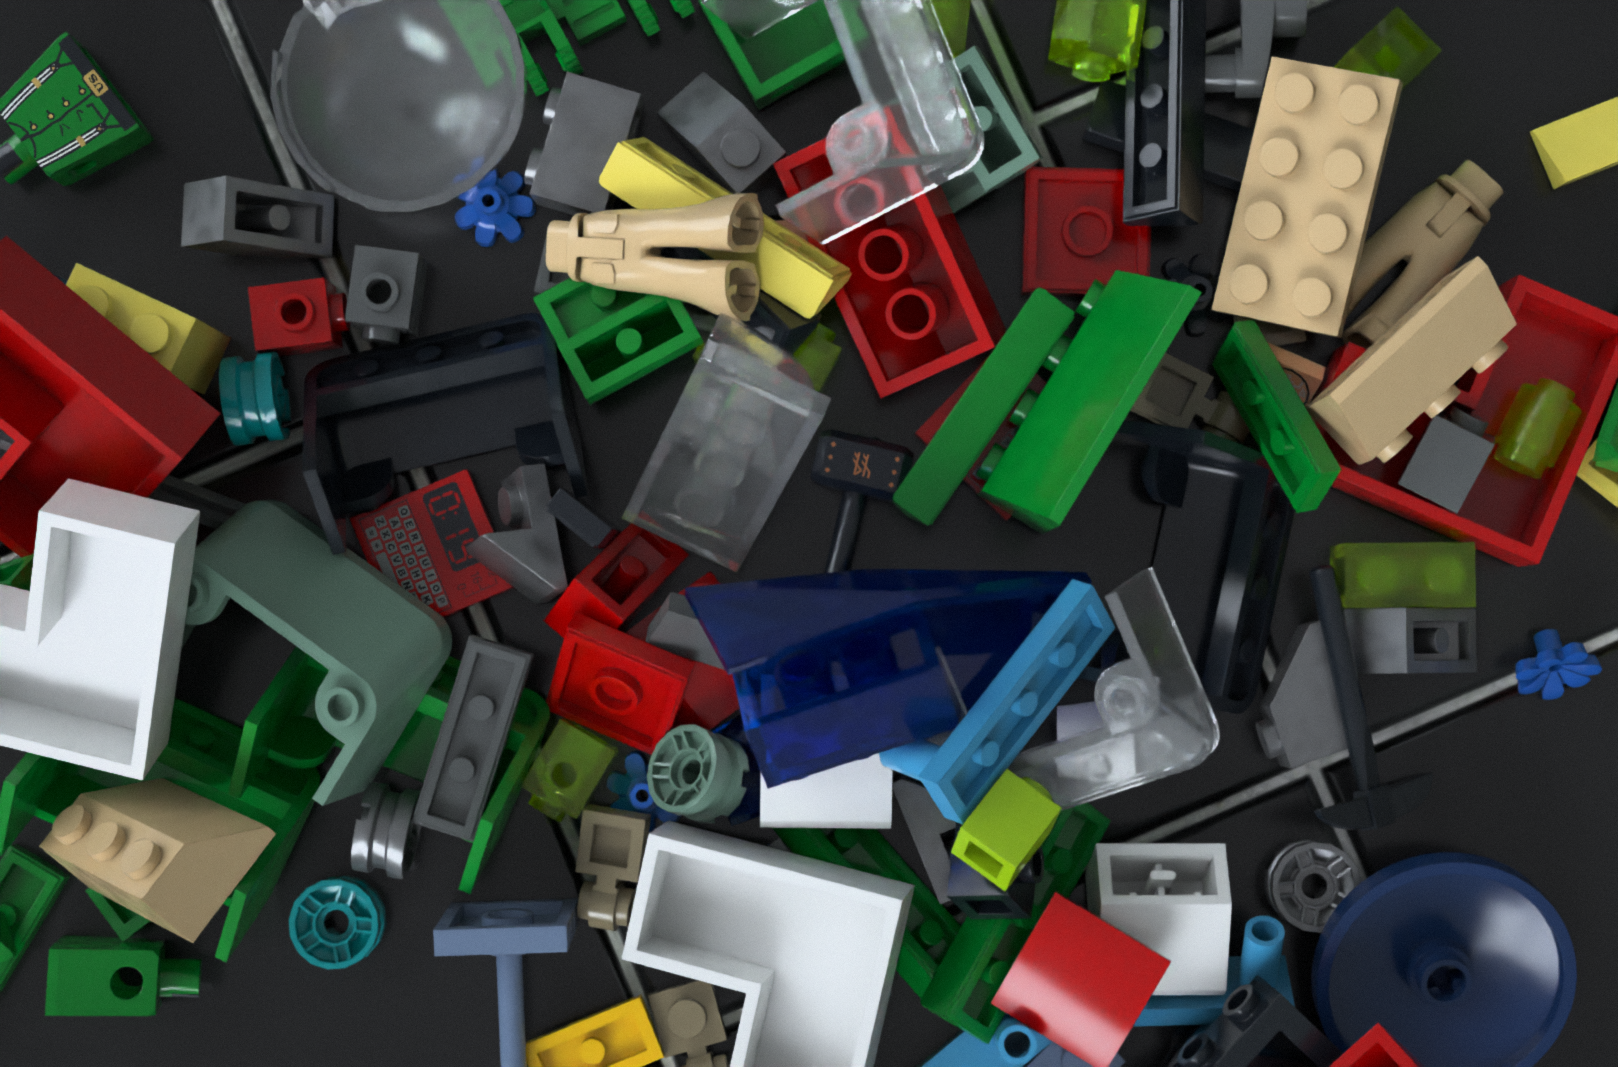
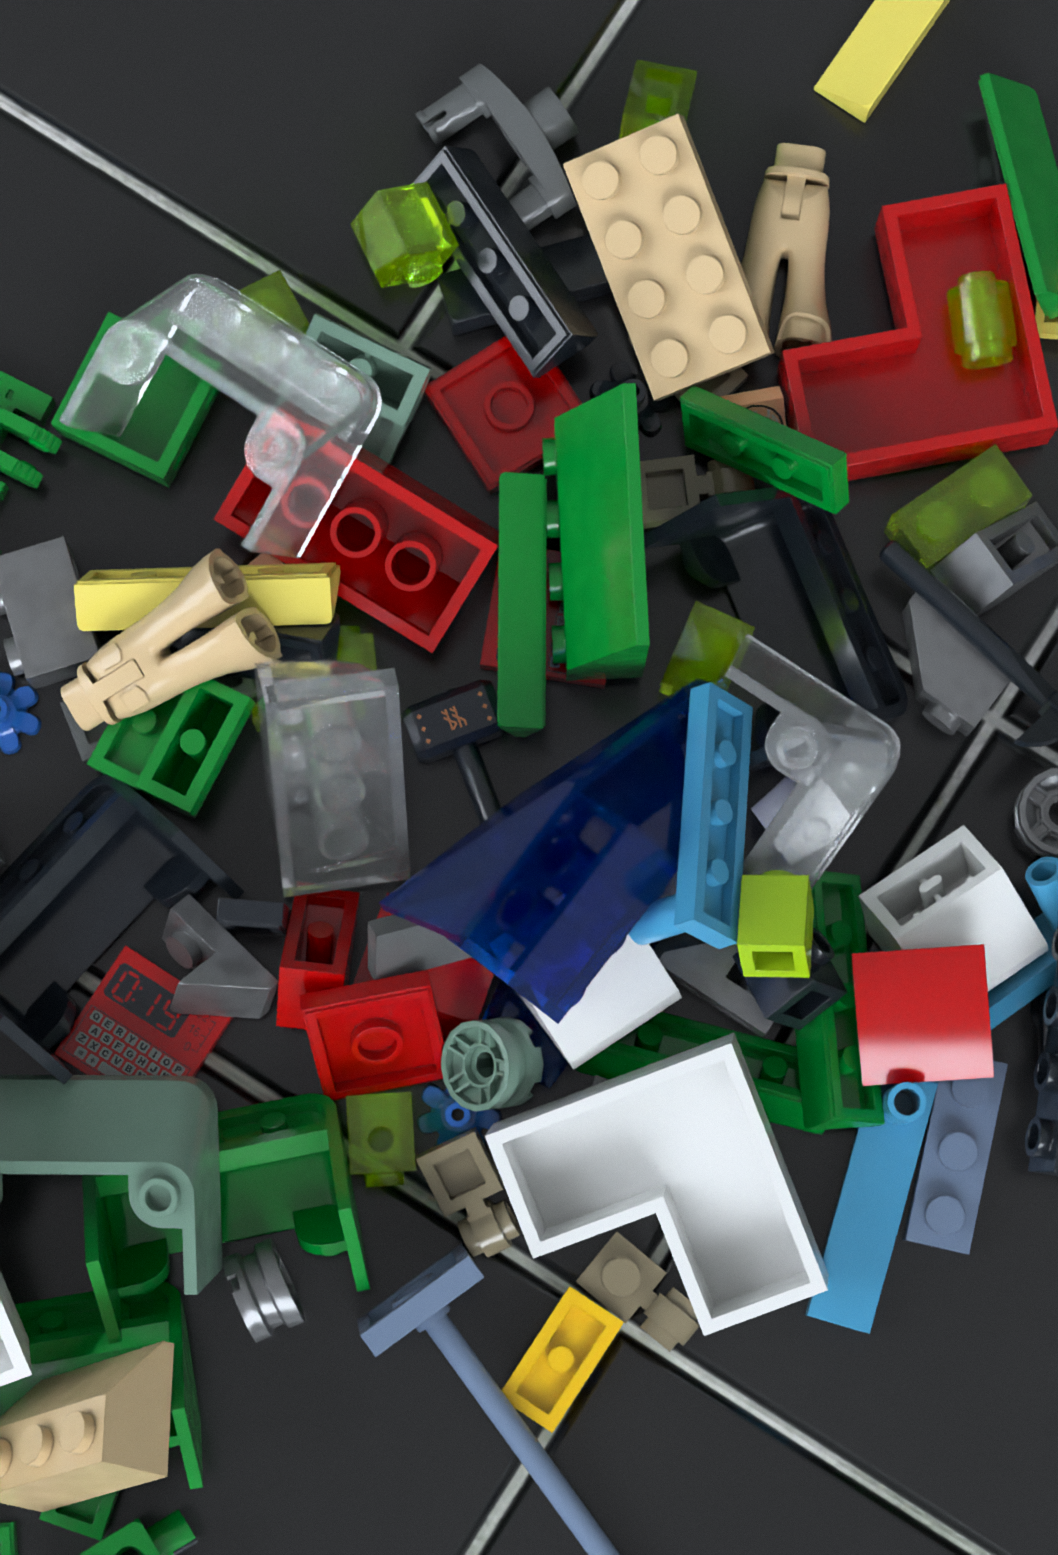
camera: 40 degrees left, 5 degrees down
(330, 947) = (245, 1402): teal wheel -> none
(472, 737) = (283, 1160): dark grey tile -> none
(723, 136) = (154, 526): flat silver slope -> none
(1108, 553) = (704, 649): none -> clear neon green slope
(1416, 364) = (848, 331): tan slope -> none
(1448, 457) = (927, 390): dark grey brick -> none

